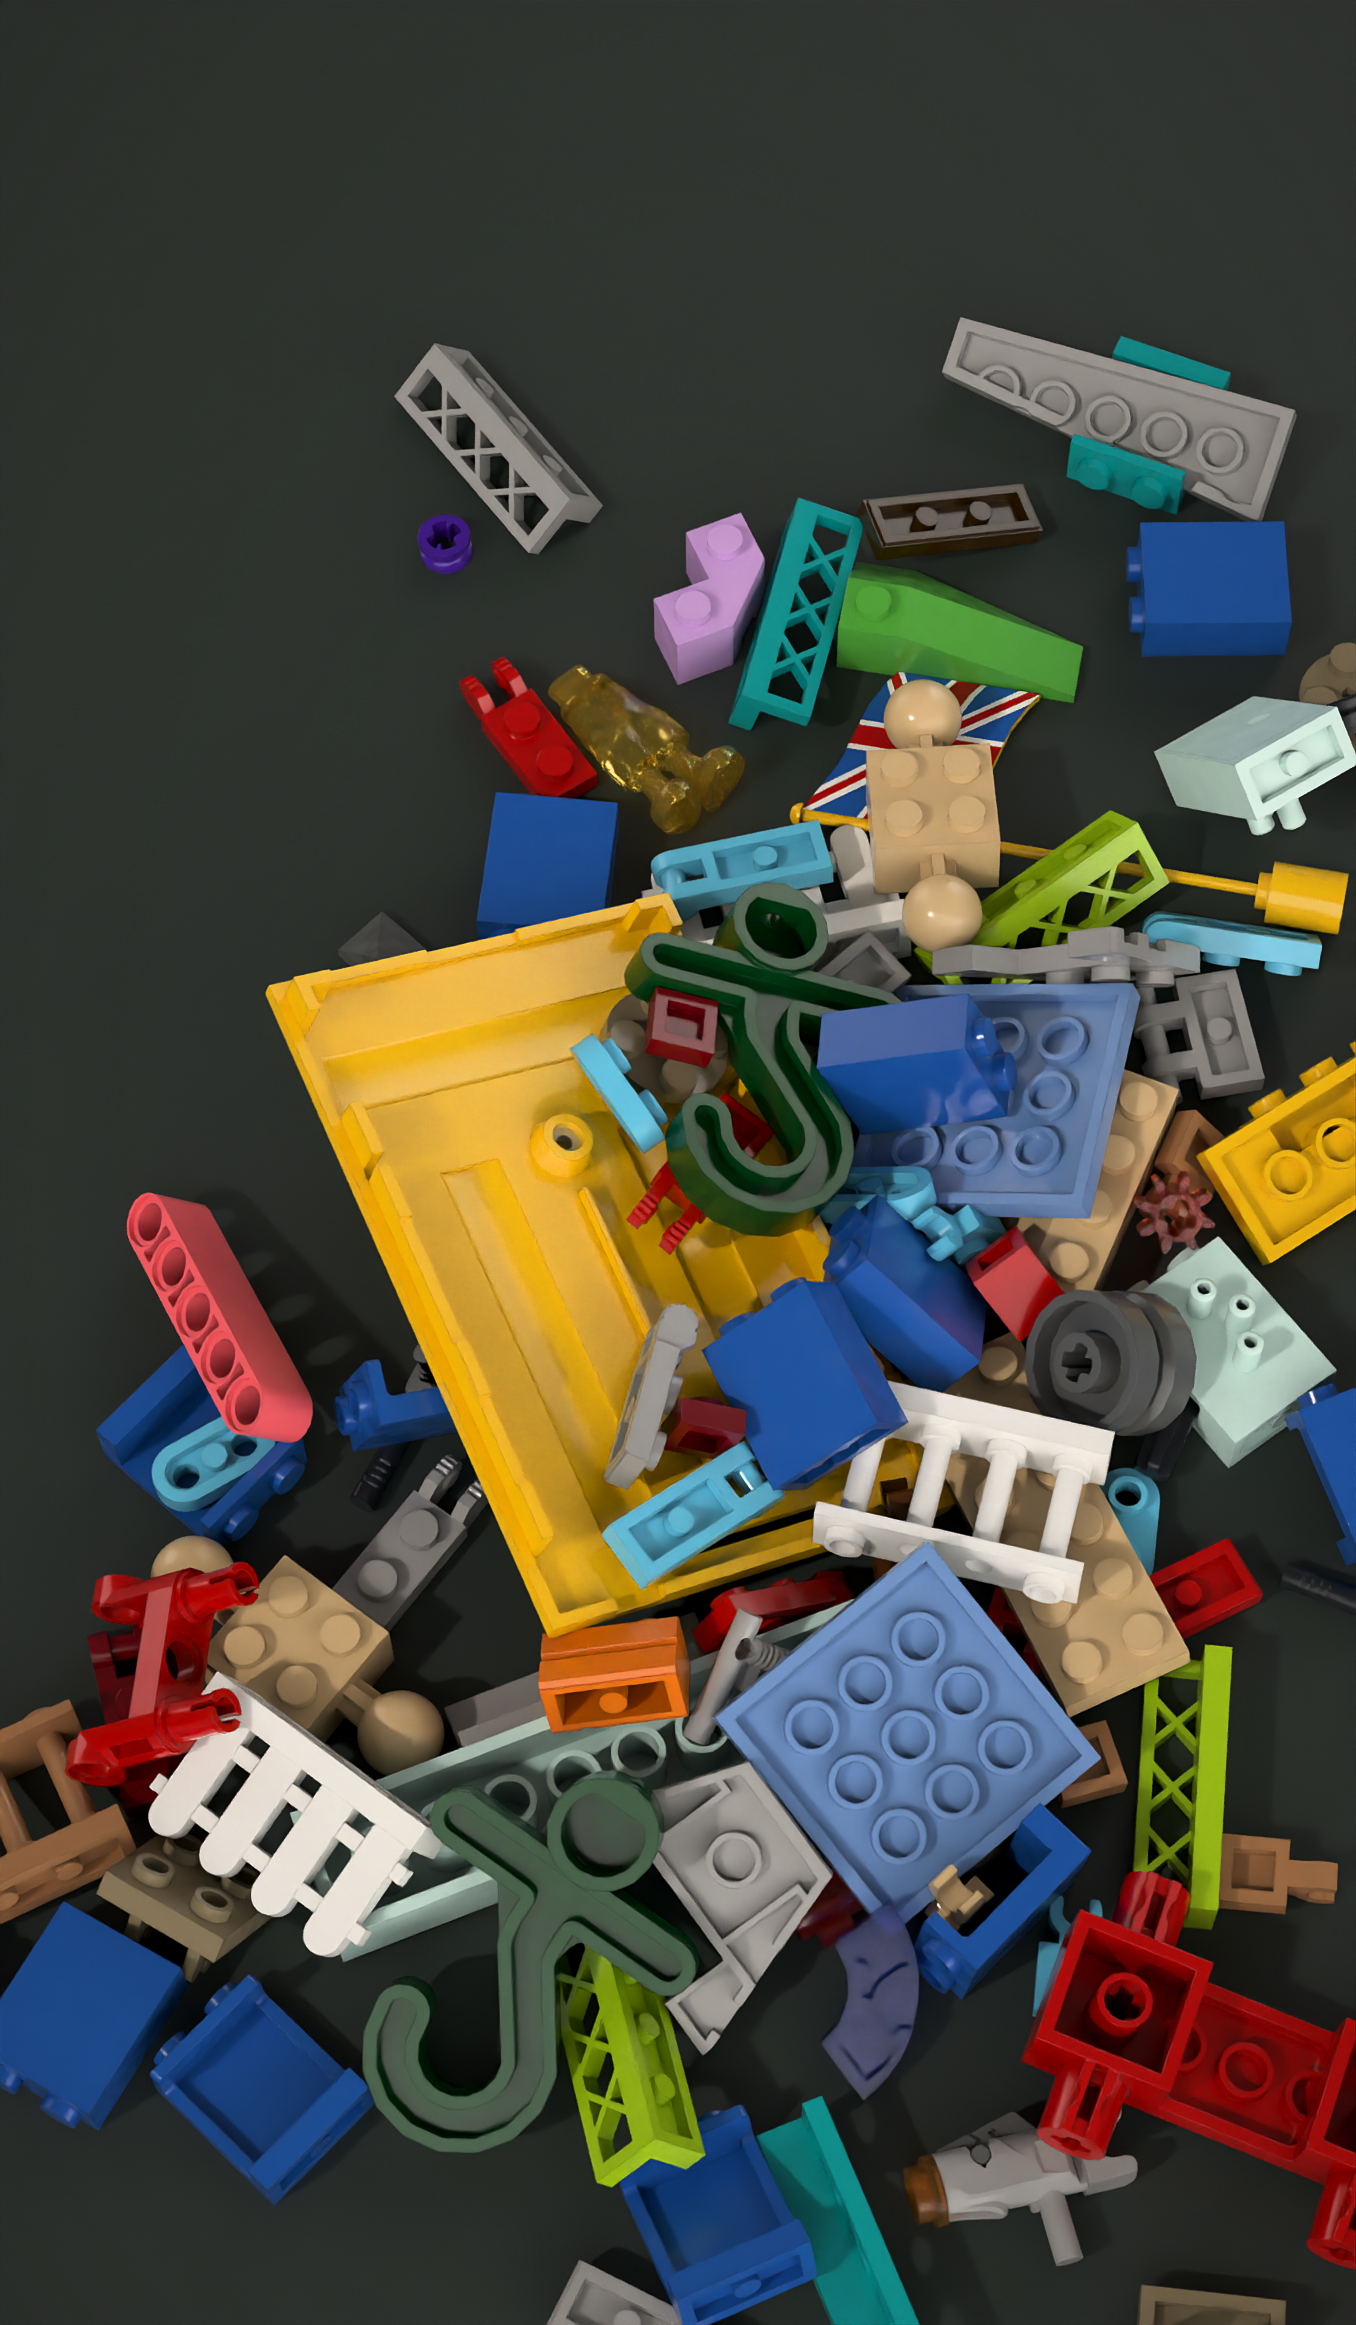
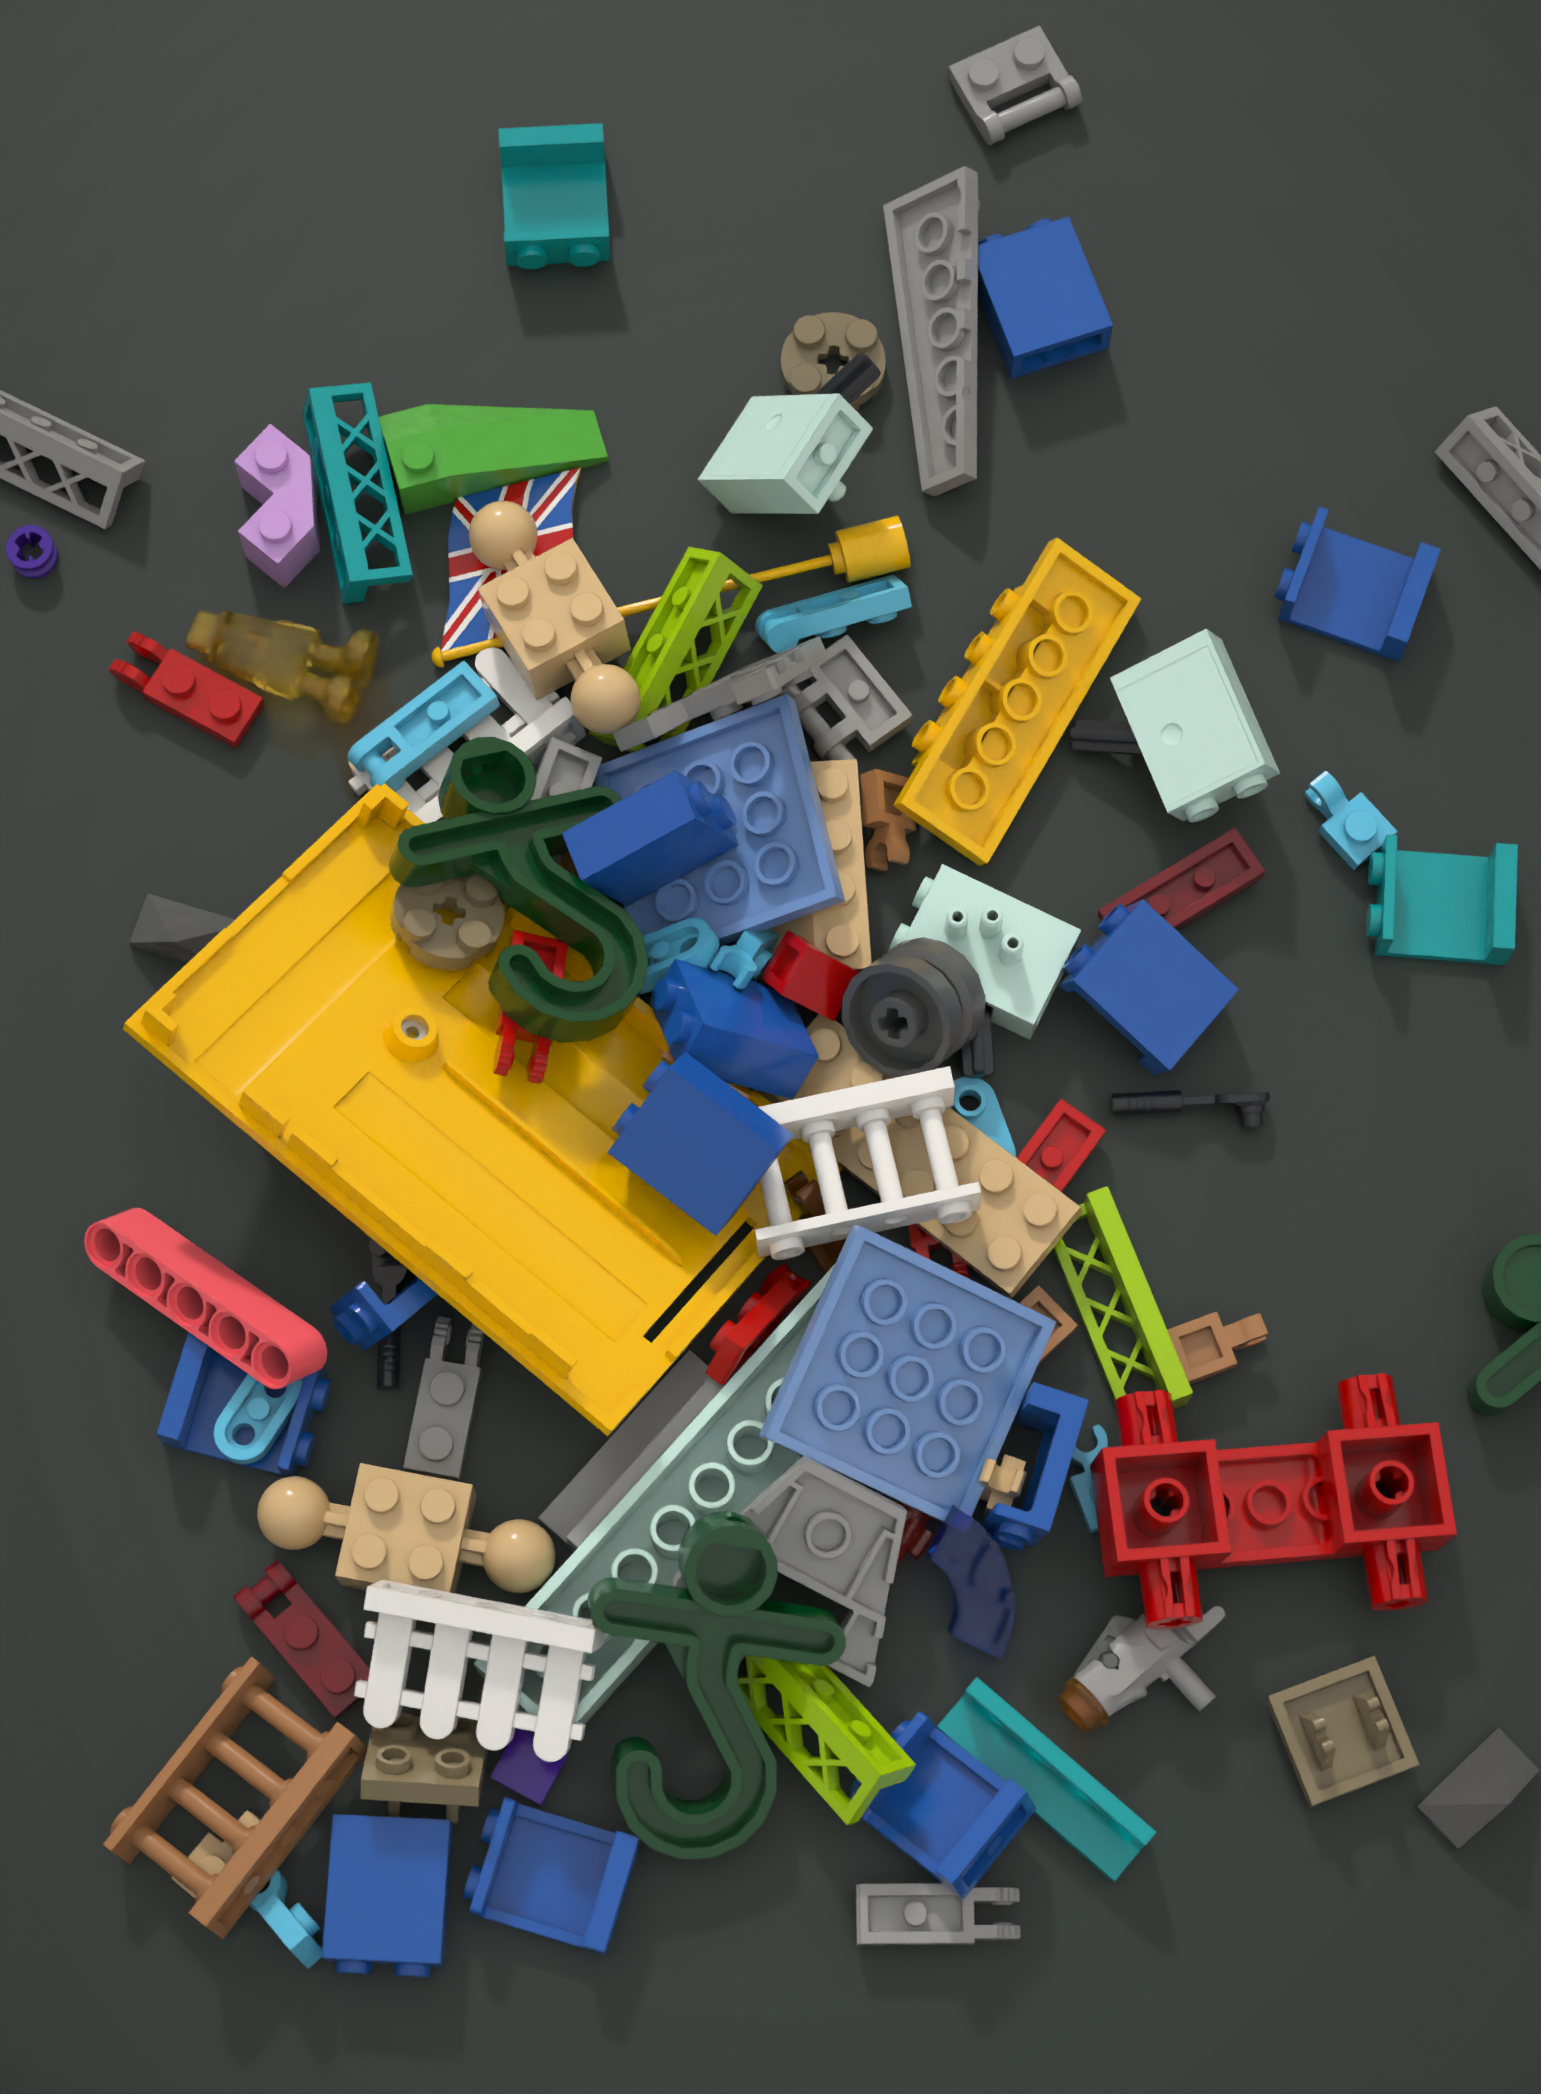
camera: 30 degrees left, 10 degrees up
(164, 1711) = (339, 1631): red connector -> none
(293, 1968) = (526, 1772): none -> dark purple tile
(546, 861) = (266, 801): blue brick -> none
(605, 1068) = (418, 960): medium azure plate -> none
(615, 1675) = (670, 1438): orange brick -> none
(650, 1394) = (588, 1208): light grey hinge -> none
(681, 1027) = (459, 897): dark red plate -> none
(691, 1515) = (665, 1287): medium azure plate -> none
(703, 1427) = (639, 1213): dark red plate -> none
(732, 1671) = (757, 1388): light grey hose -> none
(949, 521) = (437, 351): dark brown tile -> none
(1182, 1227) = (911, 871): clear red gear -> none
(1210, 589) = (672, 317): blue brick -> none
(1216, 436) = (574, 187): light grey wing -> none

